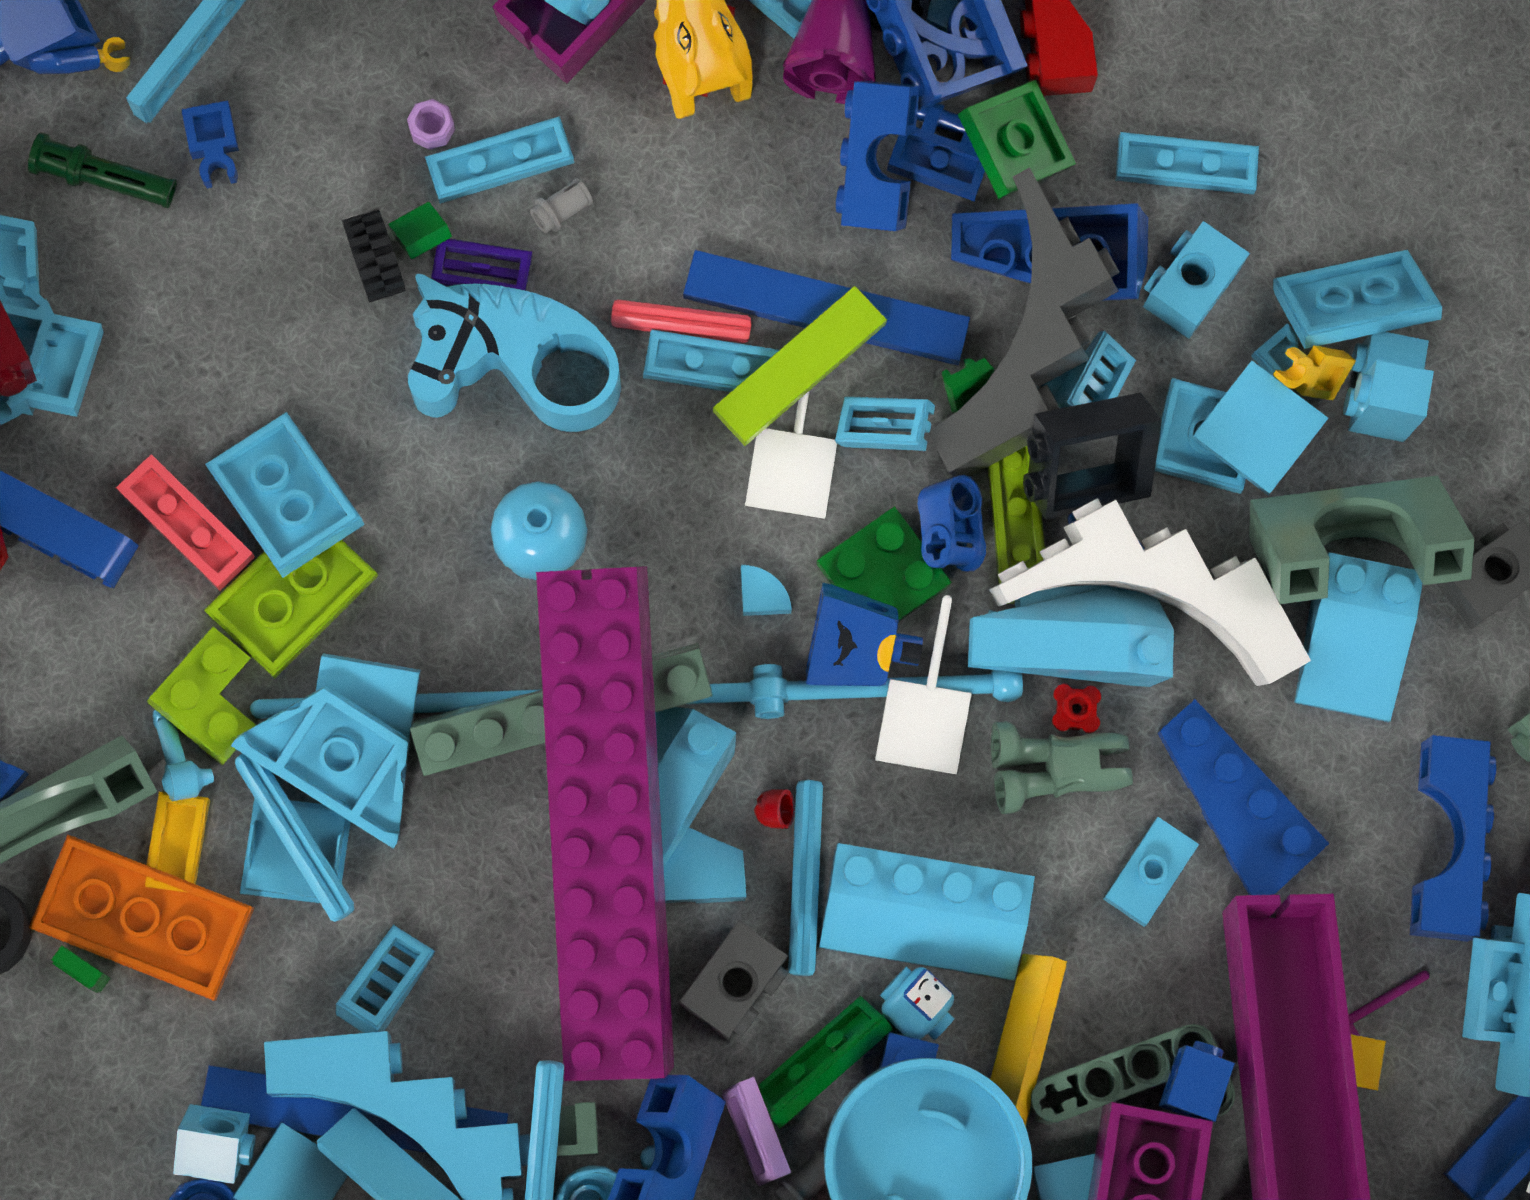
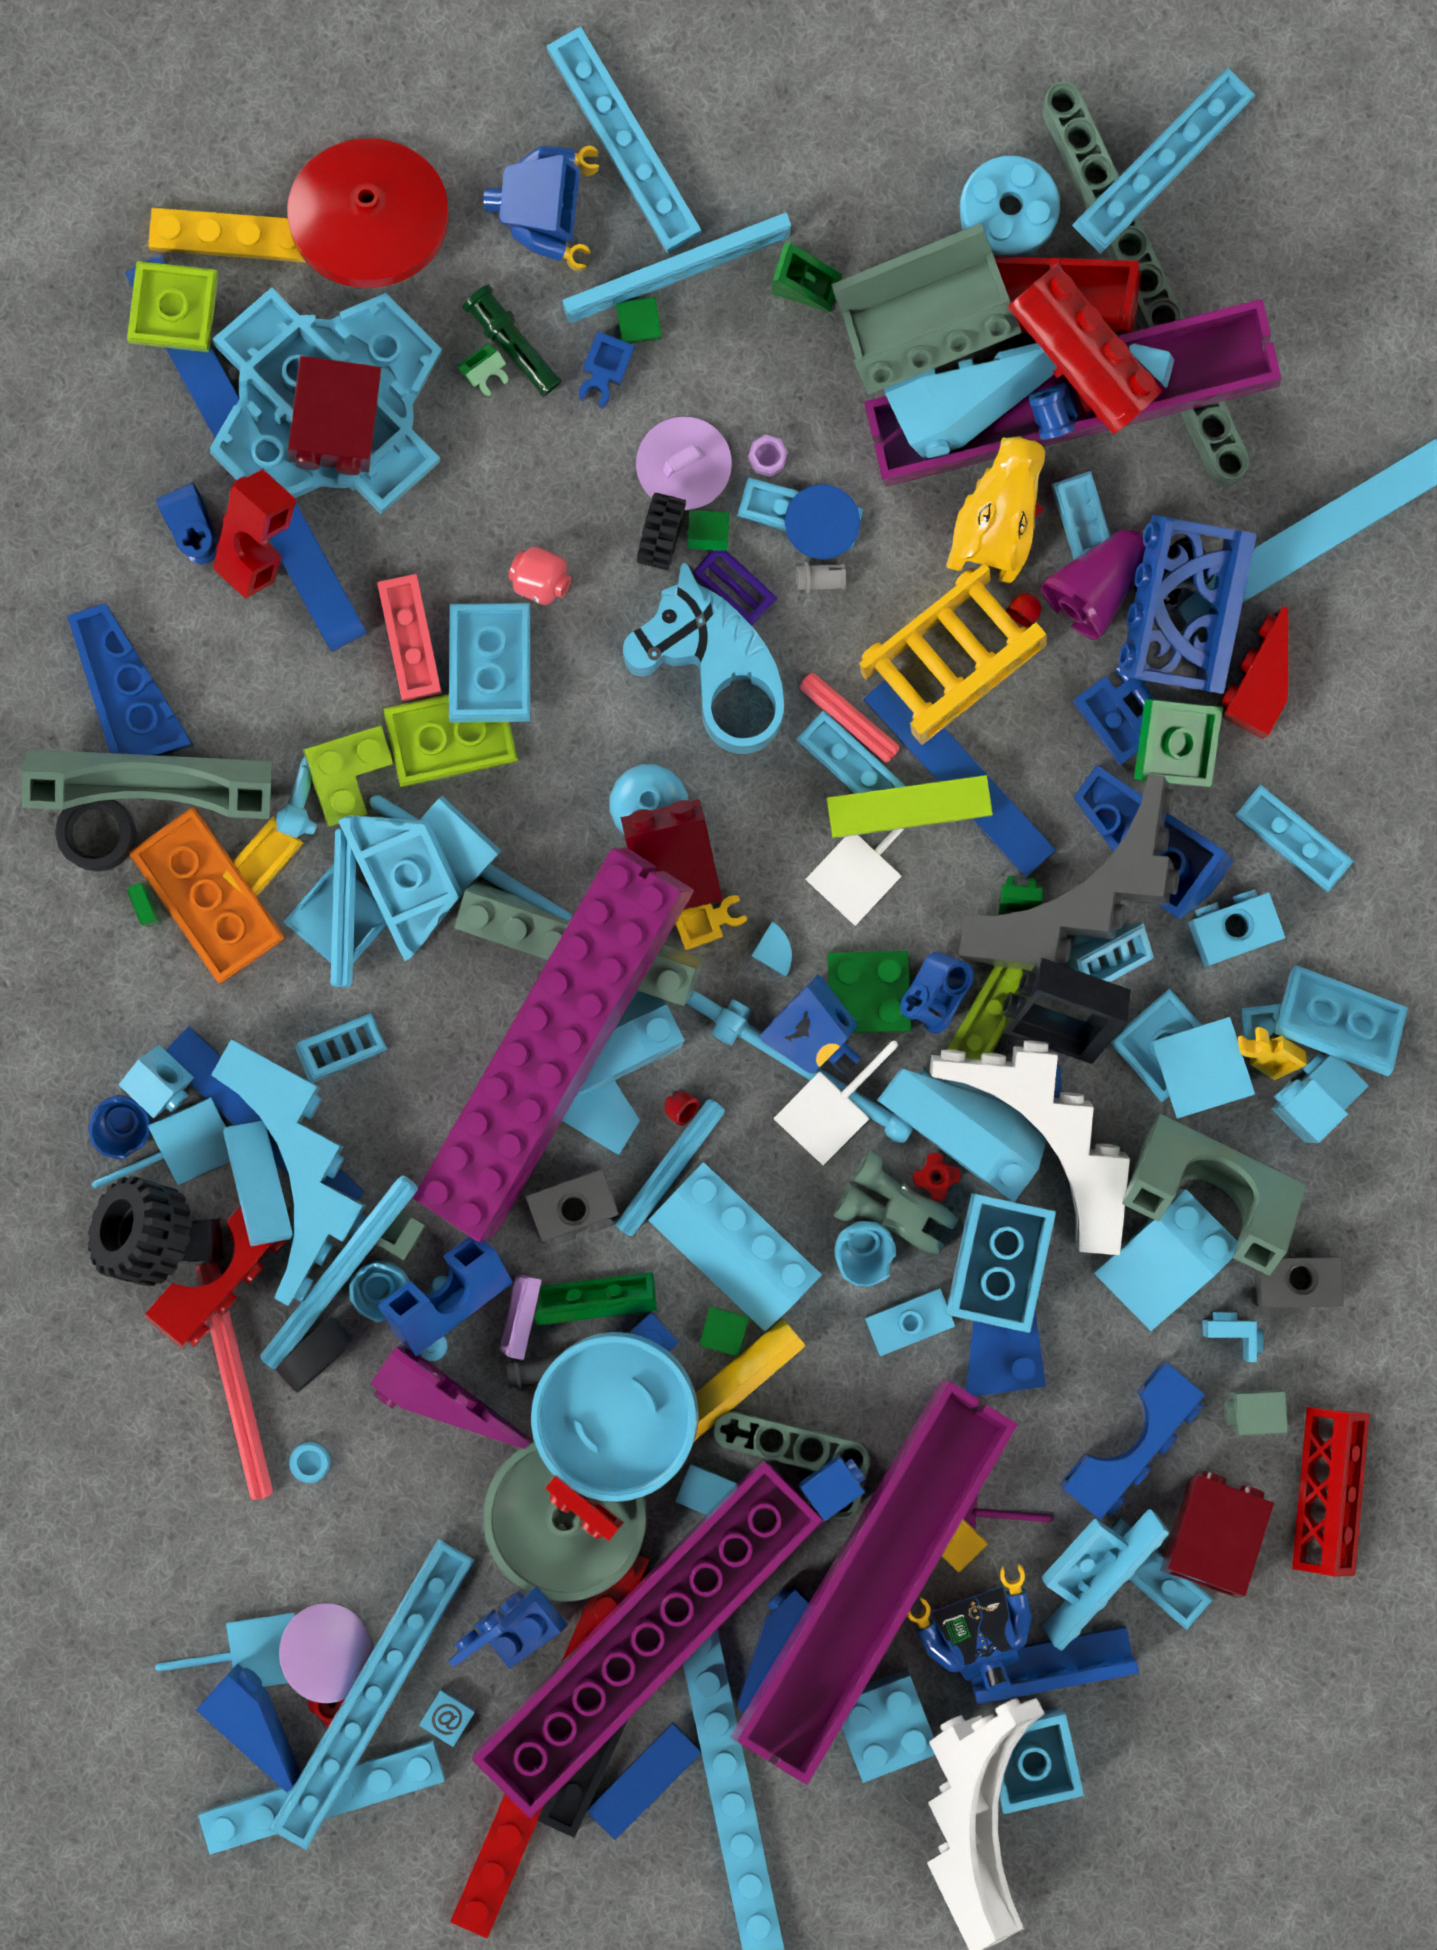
camera: 40 degrees right, 10 degrees up
(86, 213) = (481, 365): none -> tile
(216, 77) = (639, 320): none -> green tile
(279, 377) = (539, 575): none -> coral head
(349, 178) = (684, 461): none -> lavender shield
(527, 152) = (822, 521): none -> blue sticker
(596, 535) = (676, 843): none -> dark red brick
(674, 611) = (703, 923): none -> yellow plate
(773, 223) = (958, 692): none -> yellow fence
(781, 106) = (1028, 606): none -> red hinge
(869, 195) = (1043, 715): blue arch -> none
(917, 427) = (960, 907): medium azure tile -> none
(917, 1004) = (685, 1305): medium azure head -> none
(975, 1007) = (724, 1331): none -> green tile
(1060, 829) = (865, 1253): none -> medium azure hair
(1203, 743) = (1000, 1263): none -> medium azure brick
(1443, 1134) = (979, 1632): none -> torso
(1486, 655) = (1228, 1326): none -> medium azure bracket

